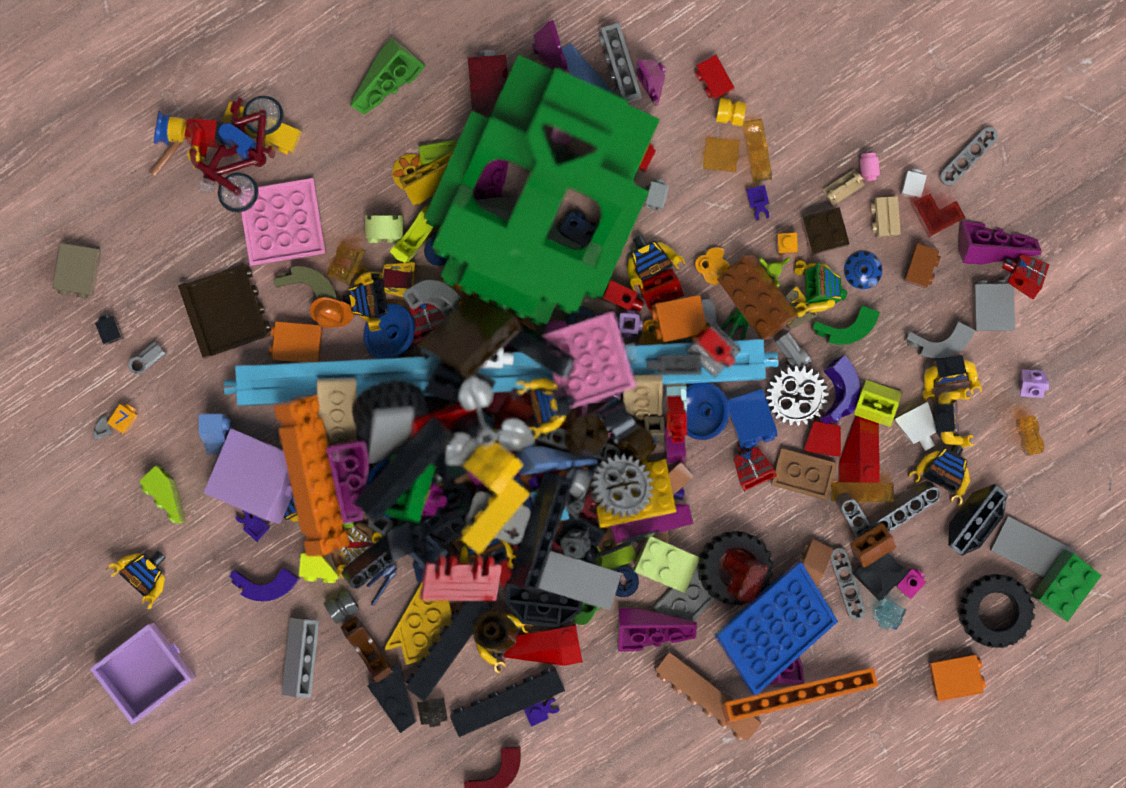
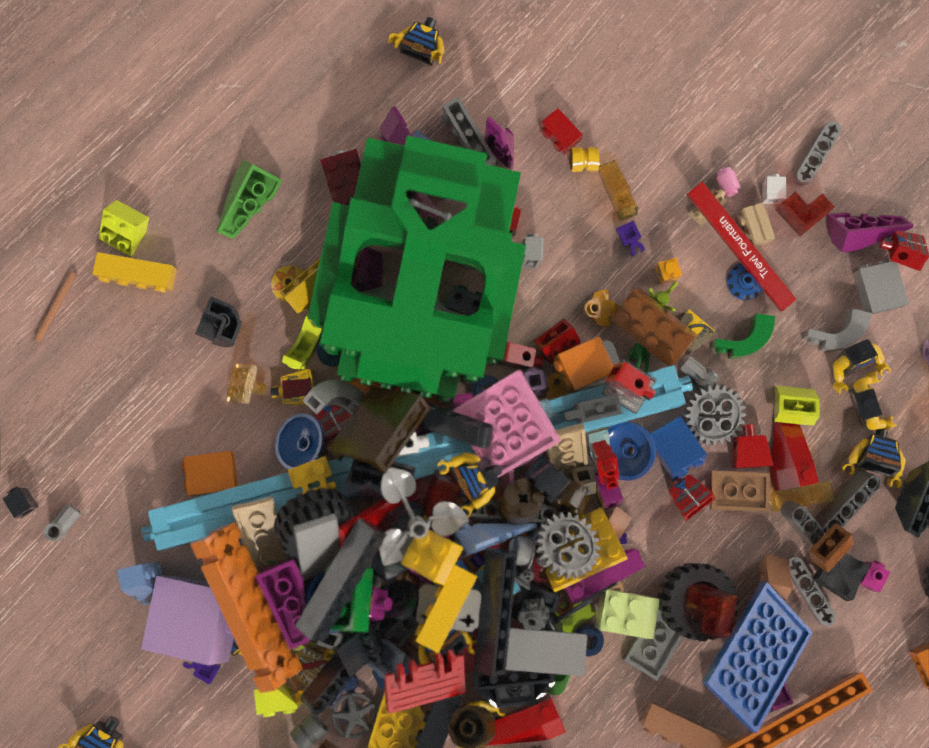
camera: 20 degrees left, 5 degrees down
(102, 429) = (32, 603): light grey tile -> none
(123, 418) = (49, 588): light orange brick -> none
(164, 490) = (104, 656): lime slope -> none
(225, 311) = (132, 458): dark brown panel -> none
(238, 190) = (118, 335): piece -> none
(258, 78) = (122, 227): none -> neon yellow slope
(277, 588) = (228, 735): dark purple arch -> none
(284, 223) = (172, 359): bright pink plate -> none
(310, 277) = (225, 413): olive arch -> none
(331, 312) = (238, 435): orange piece -> none
(335, 198) = (219, 323): none -> black brick
(367, 300) = (271, 414): torso -> none
(383, 227) = (272, 340): yellowish green brick -> none
(386, 601) = (354, 715): none -> dark grey wheel
(396, 364) = (312, 472): none -> yellow plate
(432, 152) = (306, 258): lime tile -> none
(575, 156) = (447, 216): none -> dark grey hinge
(646, 628) = (621, 682): magenta wedge -> none
(650, 260) = (540, 316): torso -> none
(721, 155) = (583, 202): clear yellow piece -> none
(822, 287) = (713, 304): torso -> none
(825, 231) = (701, 251): dark brown brick -> none
(847, 389) = (761, 397): dark purple arch -> none
(865, 235) = (741, 246): none -> red tile
(889, 614) = (861, 613): clear light blue brick -> none
(918, 425) = (839, 418): white torso -> none
(921, 266) = (802, 263): dark orange brick -> none

